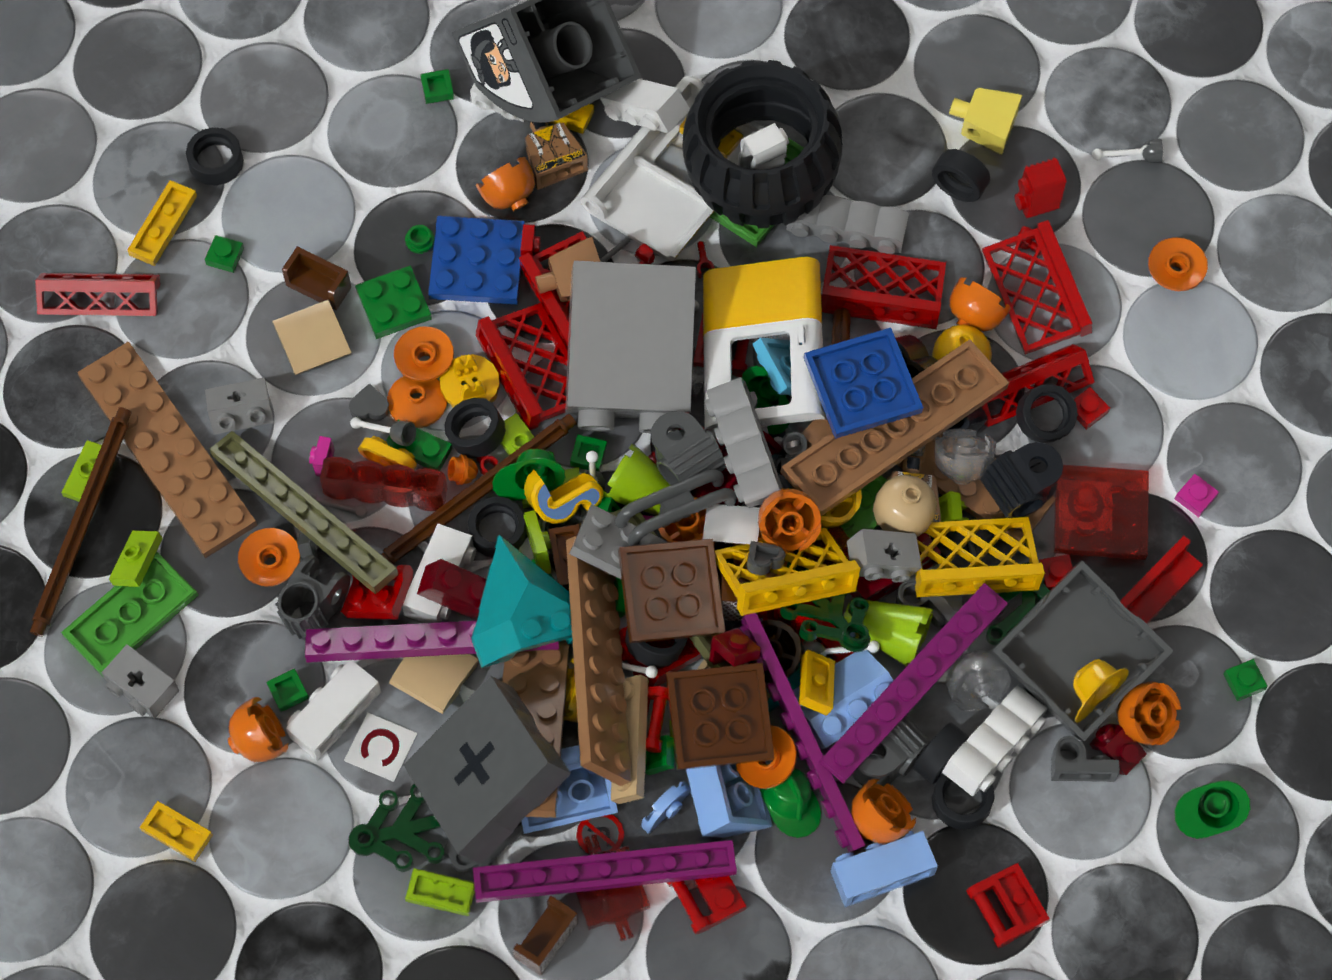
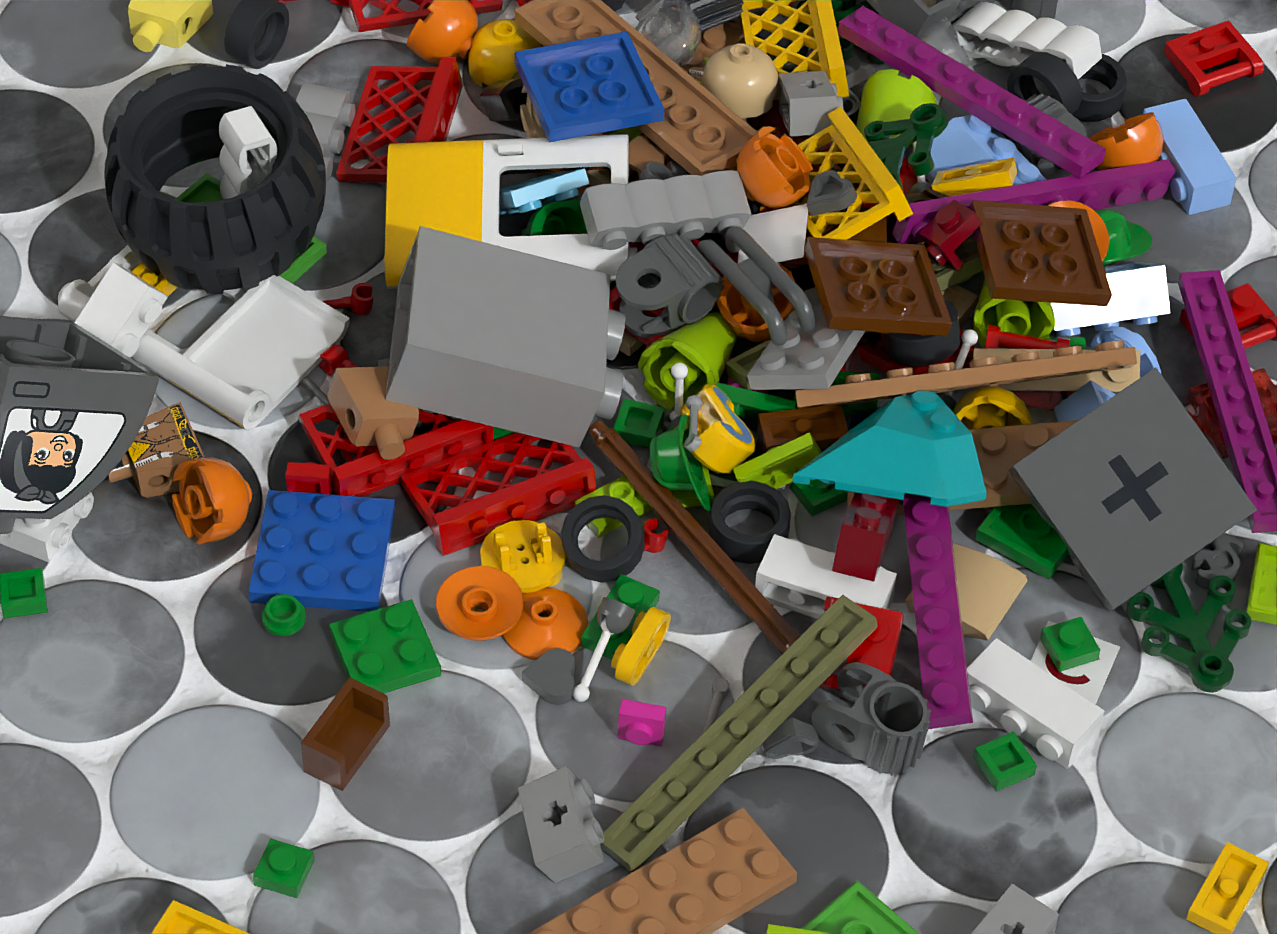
camera: 90 degrees left, 15 degrees down
(211, 137) = (100, 852): black tyre -> none
(256, 732) = (1079, 788): orange cylinder -> none
(268, 544) = (808, 771): orange dish -> none
(311, 337) = (443, 742): tan slope -> none
(375, 483) = (692, 640): clear red brick -> none
(390, 743) = (1070, 644): none -> green plate
(462, 469) = (663, 561): orange plate -> none
(578, 475) = (694, 404): none -> light grey hinge

